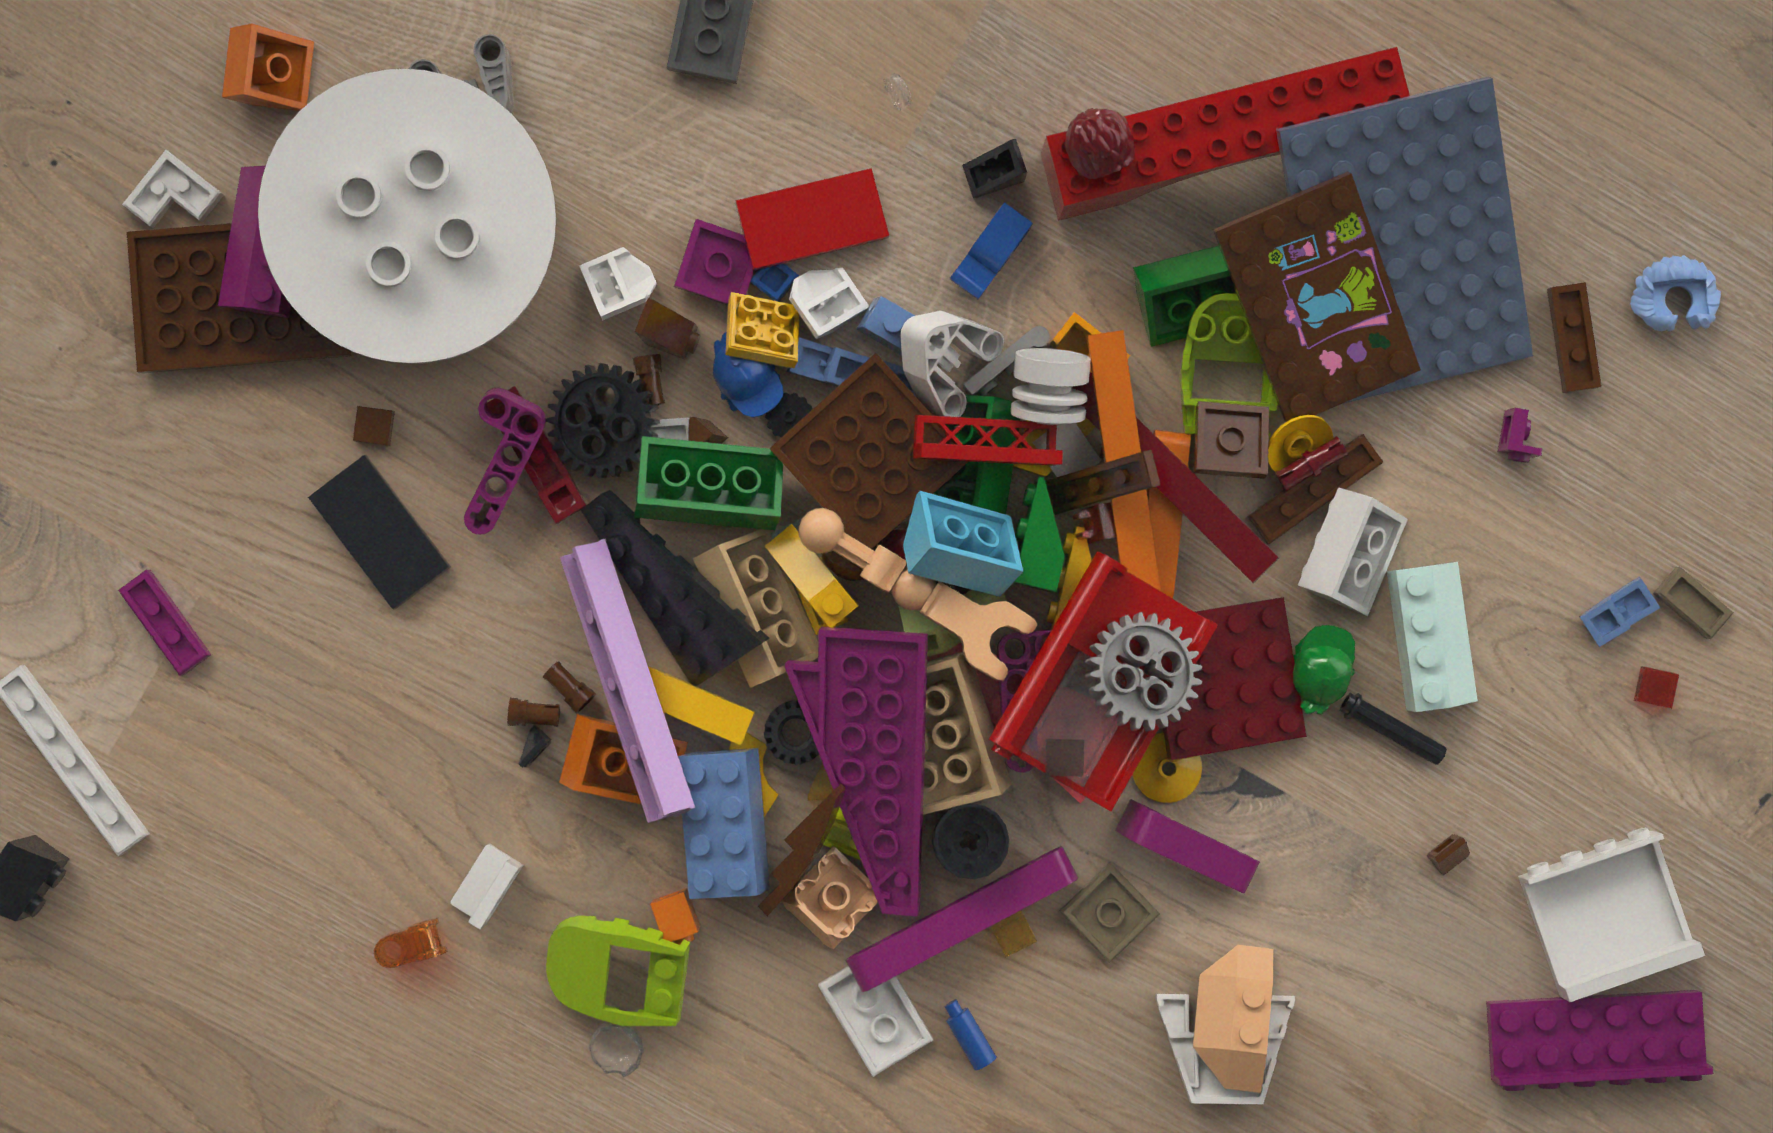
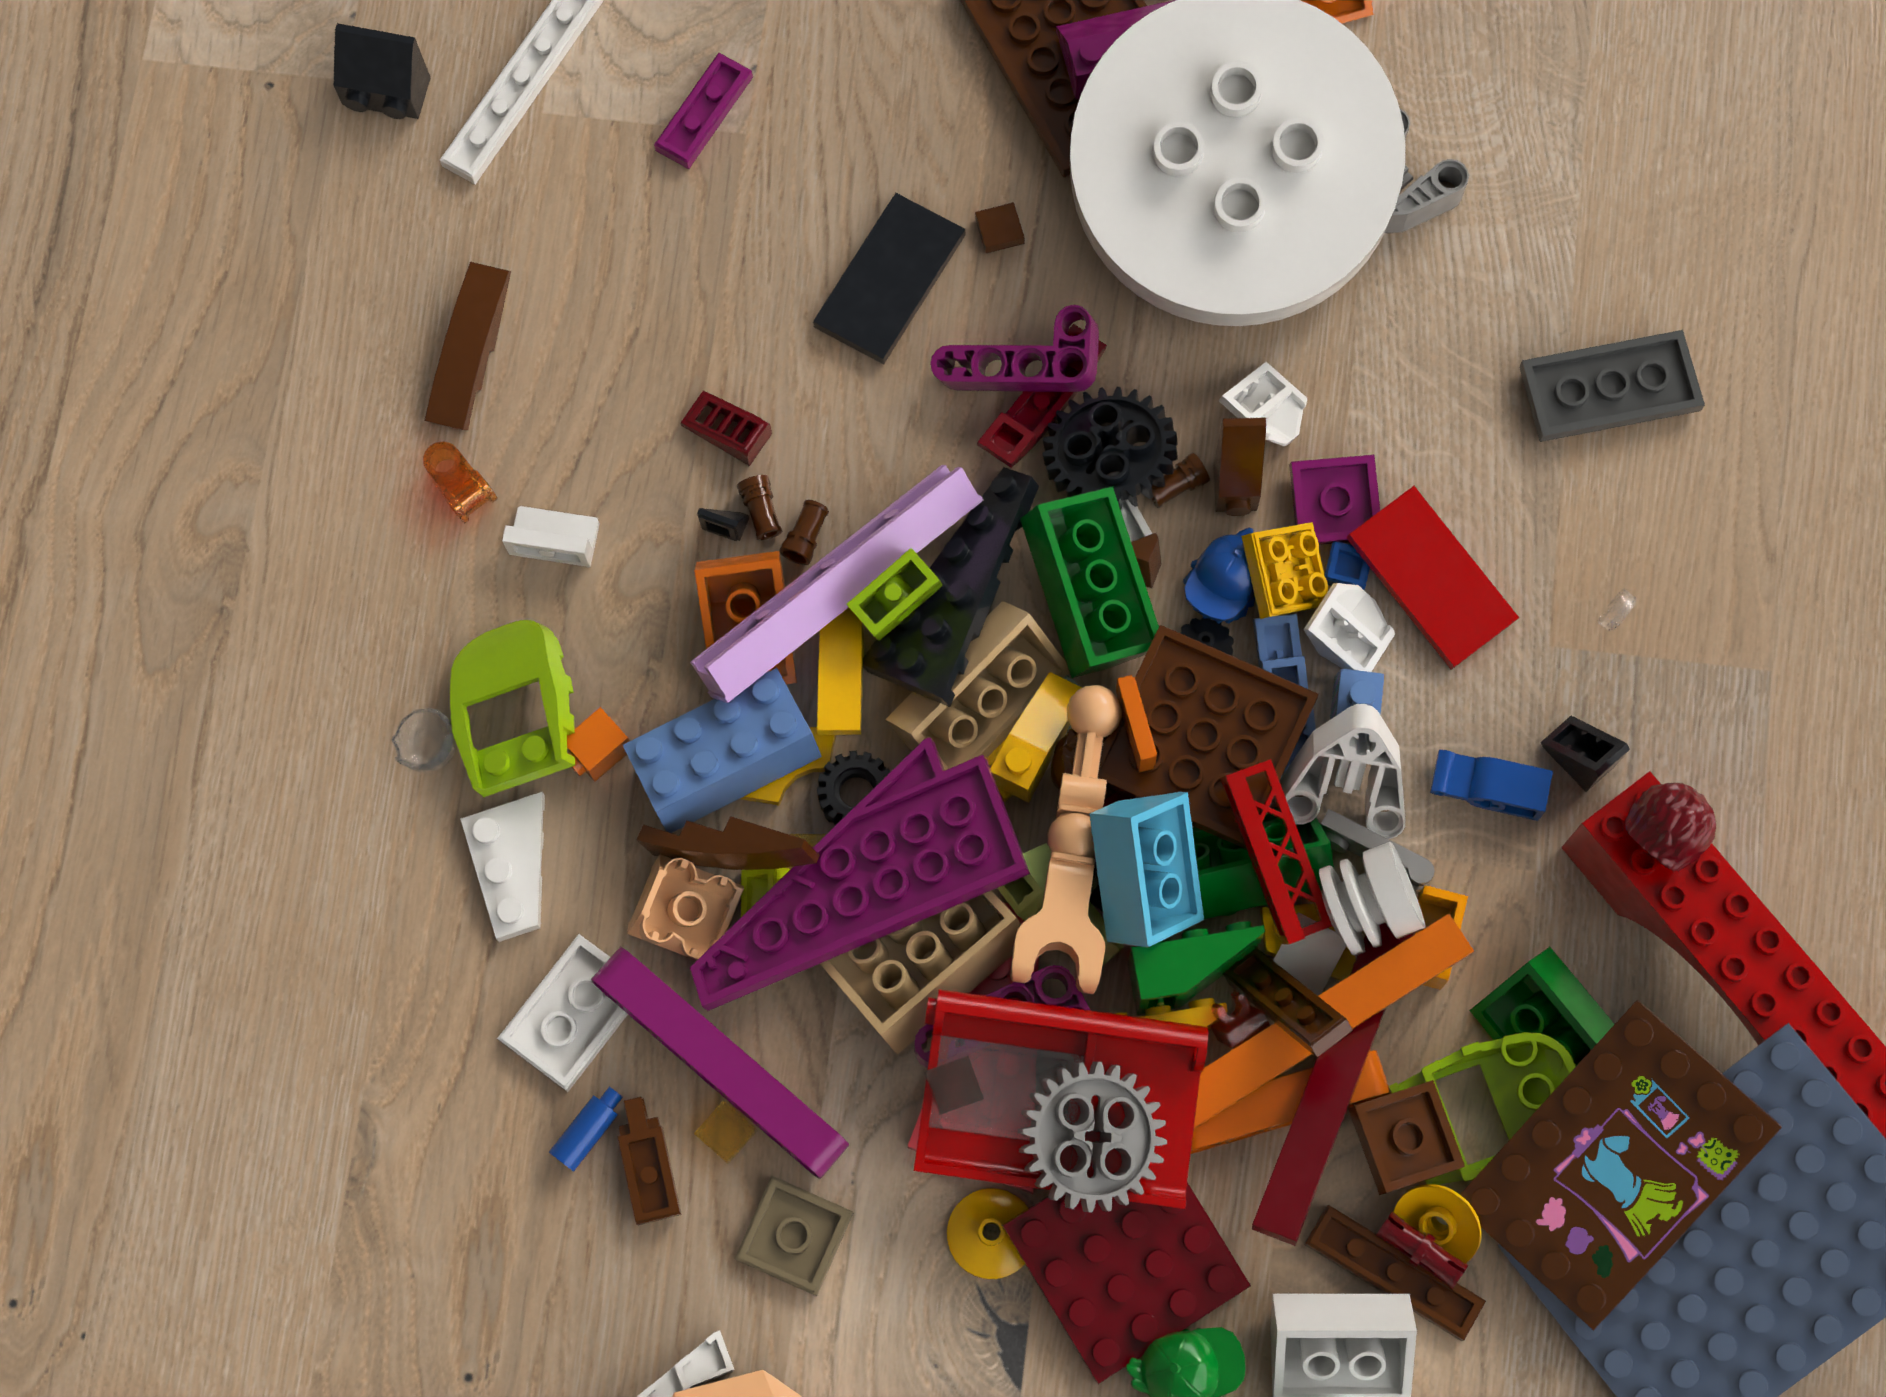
camera: 70 degrees right, 15 degrees down
(295, 893) = (467, 345): none -> reddish brown slope
(476, 697) = (745, 451): none -> dark red slope
(659, 642) = (895, 594): none -> lime brick
(739, 1018) = (507, 861): none -> white wing
(844, 503) = (1136, 723): none -> orange tile
(990, 848) = (812, 1005): black wheel -> none
(1014, 1000) = (647, 1165): none -> reddish brown hinge
(1187, 846) = (908, 1294): magenta beam -> none

